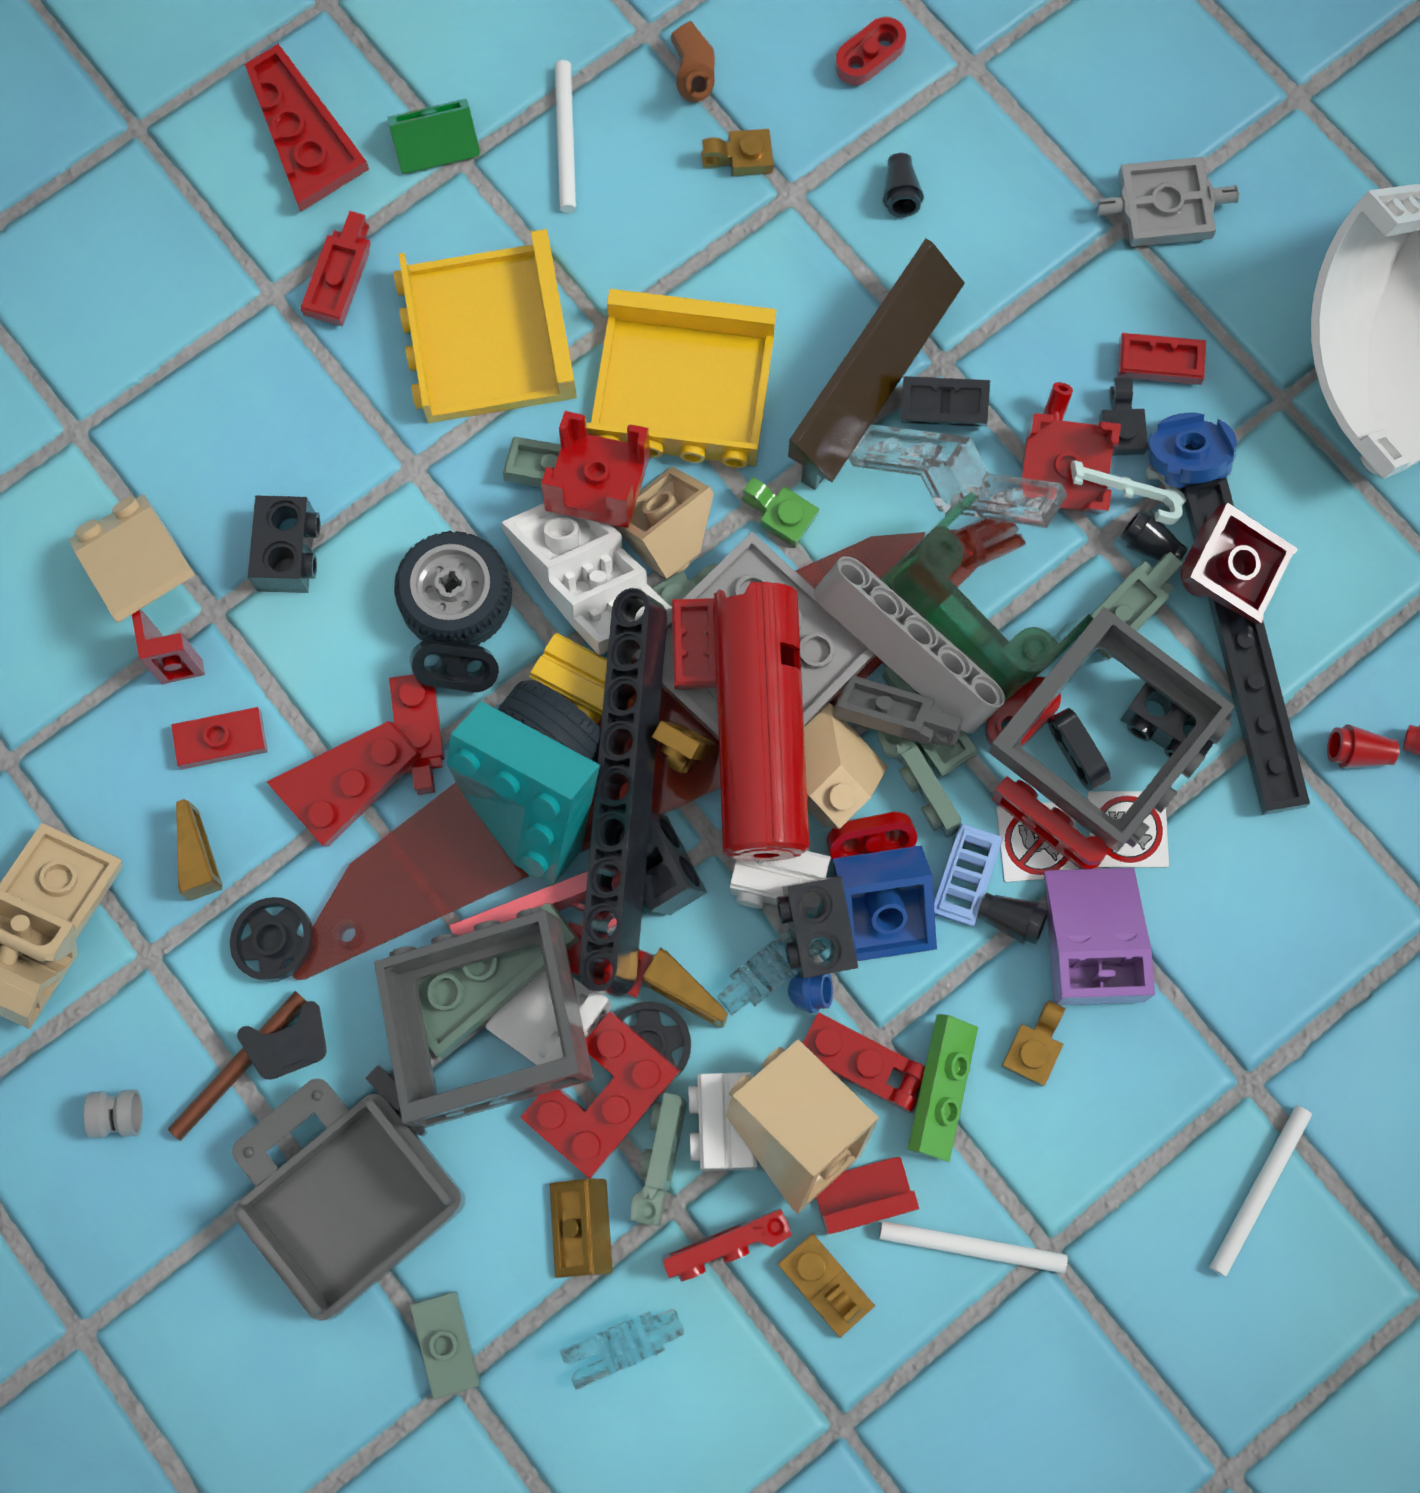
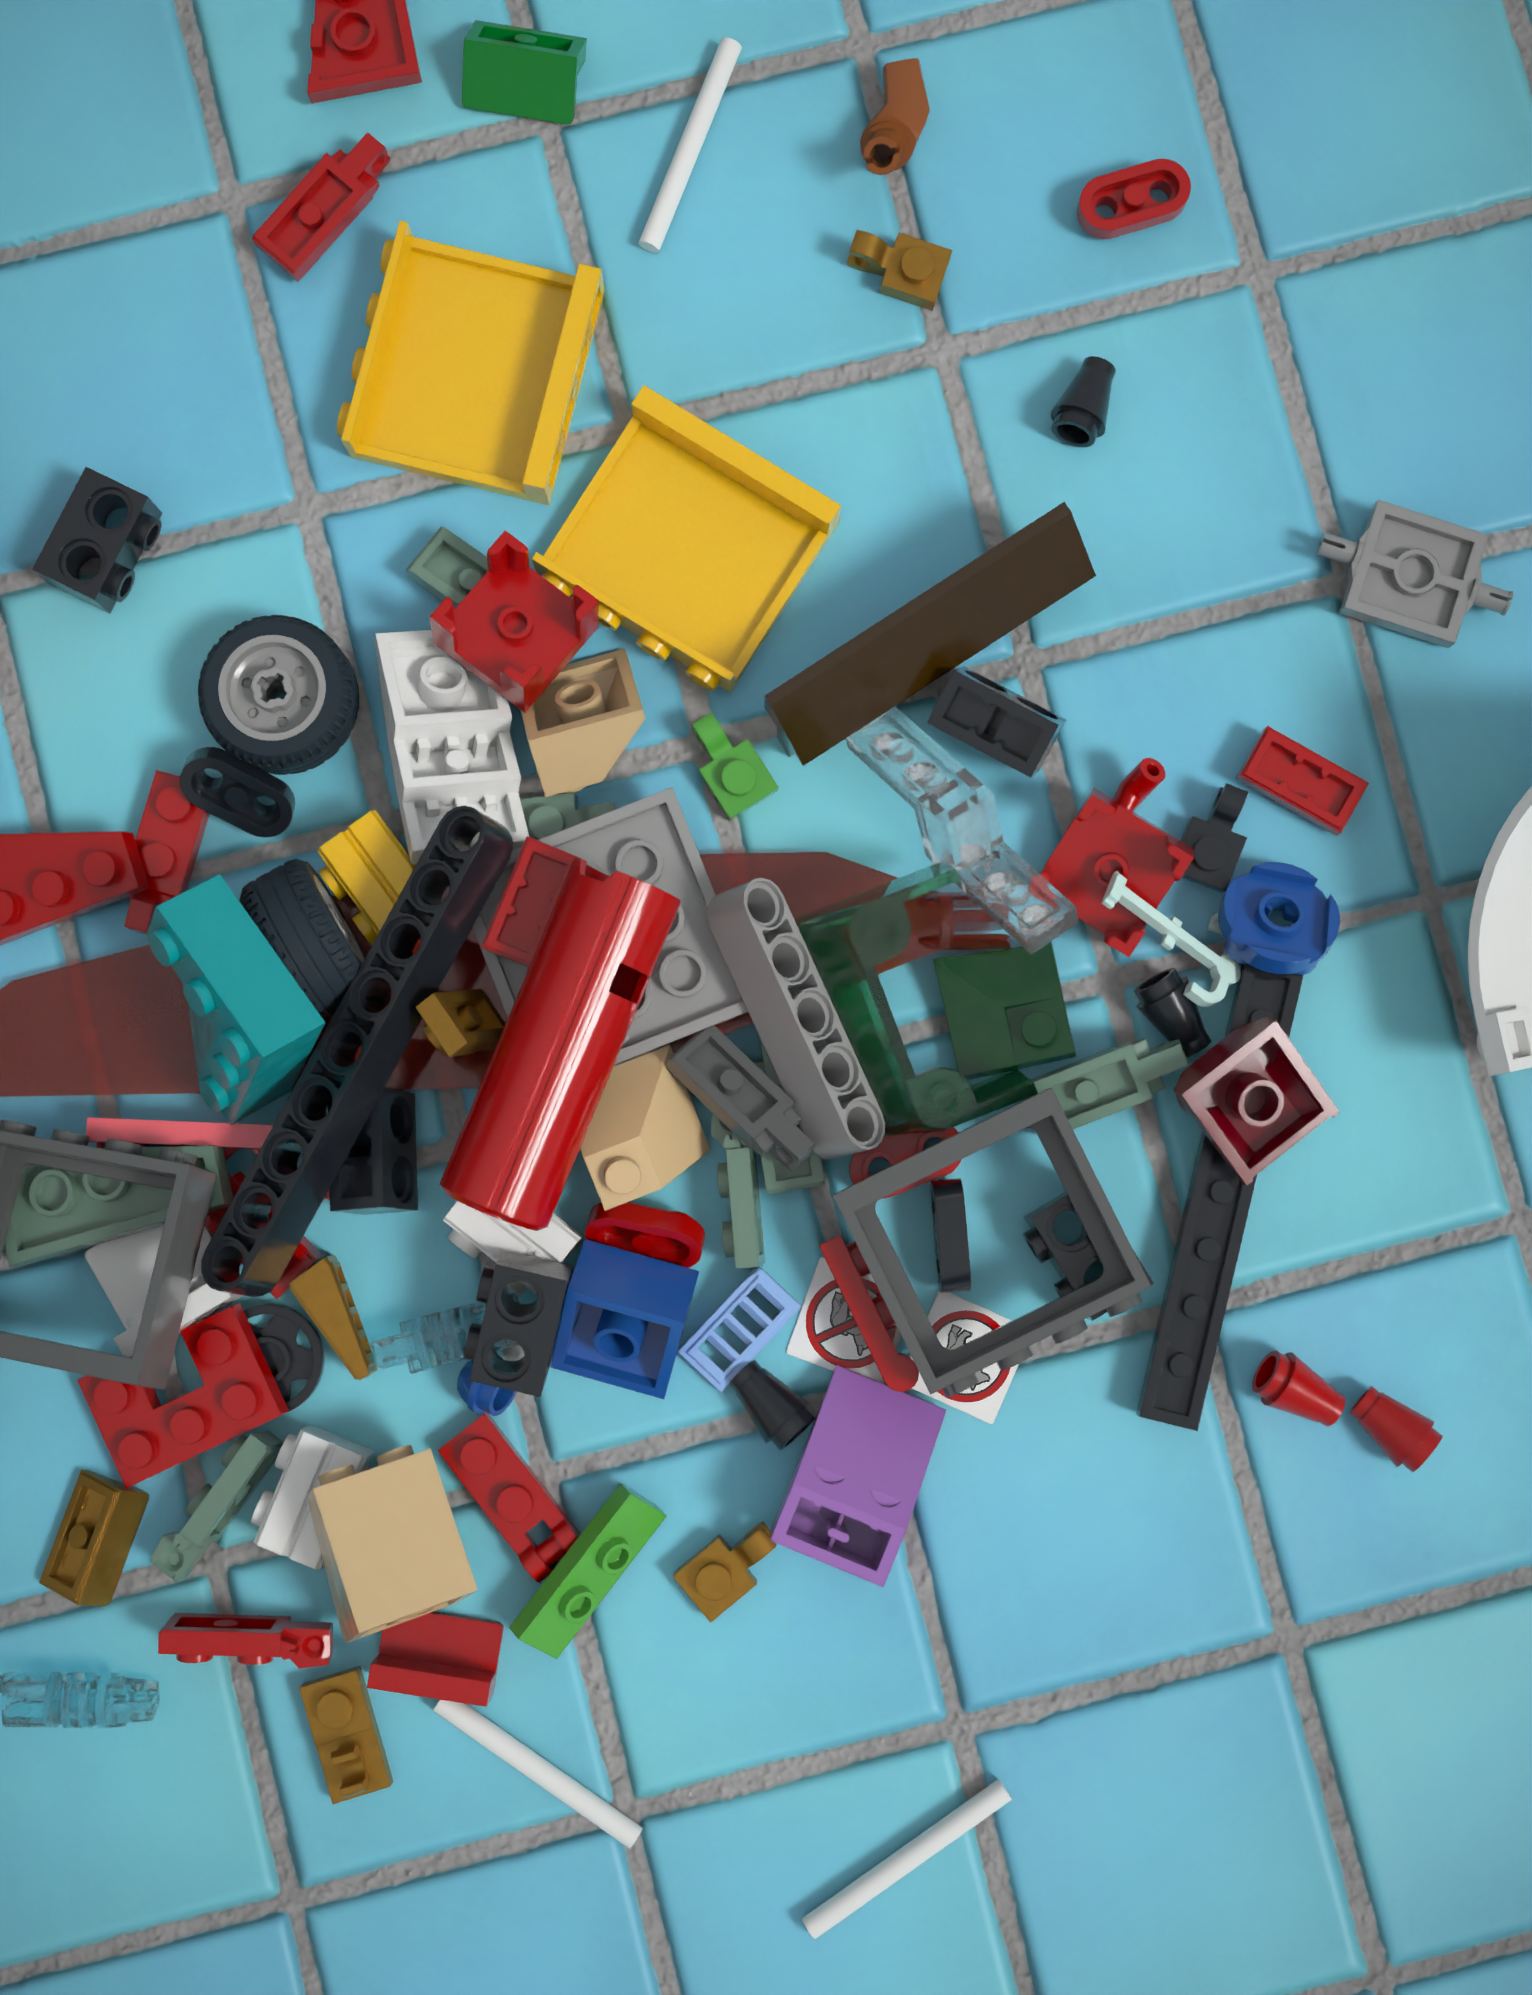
camera: 20 degrees right, 10 degrees up
(1041, 585) = (1004, 1010): none -> dark green plate

